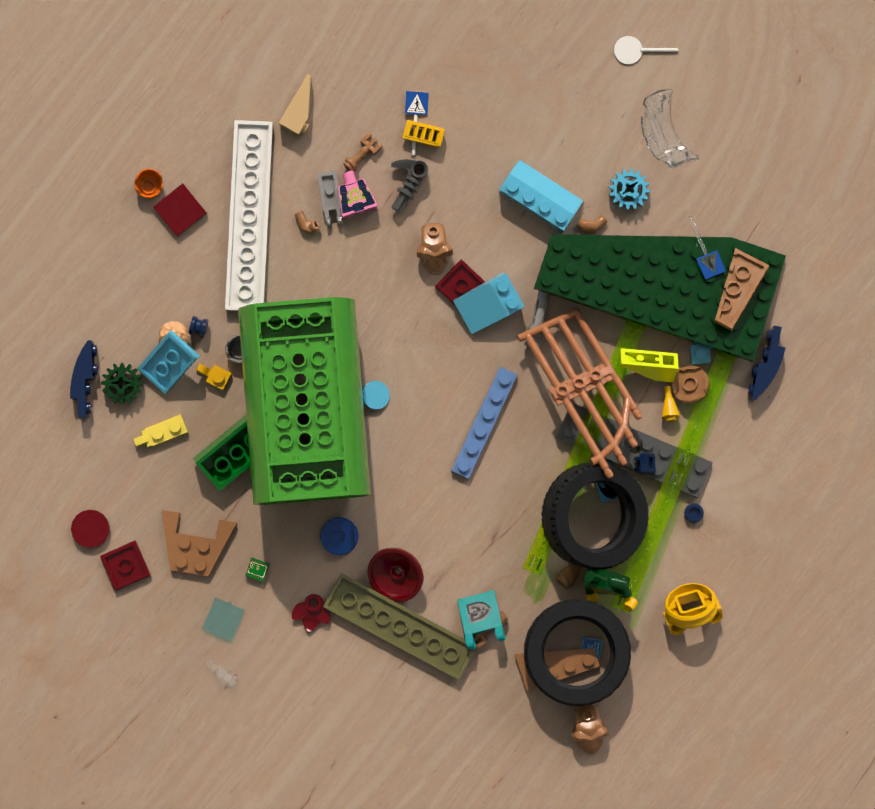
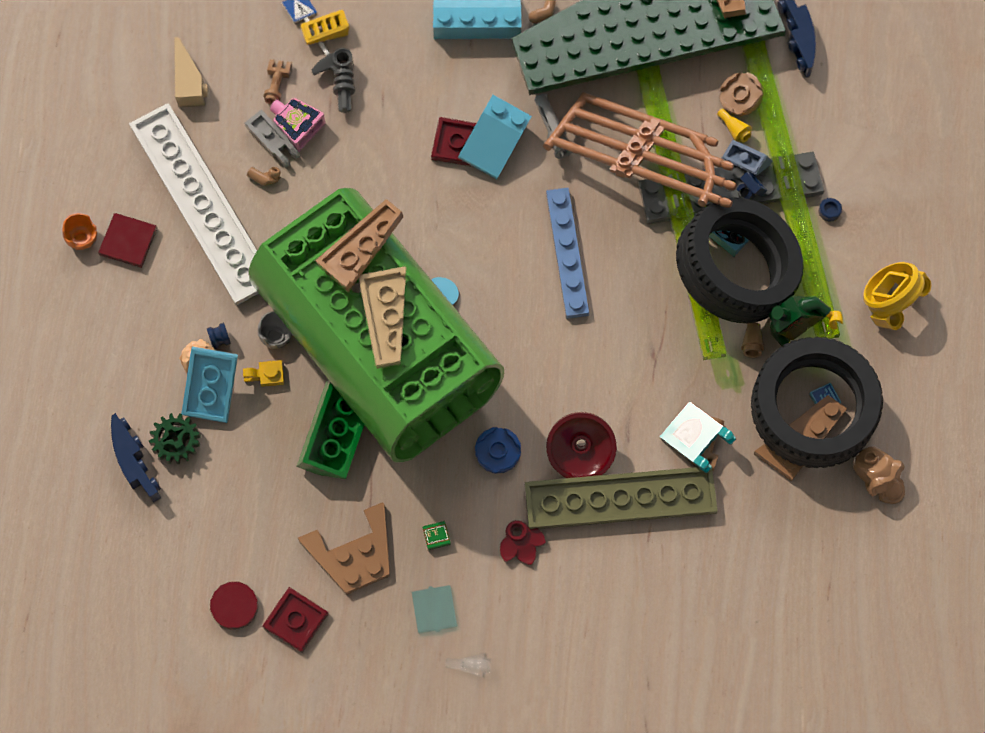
camera: 30 degrees left, 15 degrees down
(162, 432) = (247, 462): light yellow hinge -> none
(305, 410) = (384, 308): none -> tan wing
(319, 352) = (357, 248): none -> medium nougat wing
(434, 248) = (406, 121): medium nougat head -> none
(651, 364) = (694, 94): neon yellow slope -> none
(658, 437) = (746, 158): none -> sand blue slope
(699, 354) = (728, 62): medium azure plate -> none

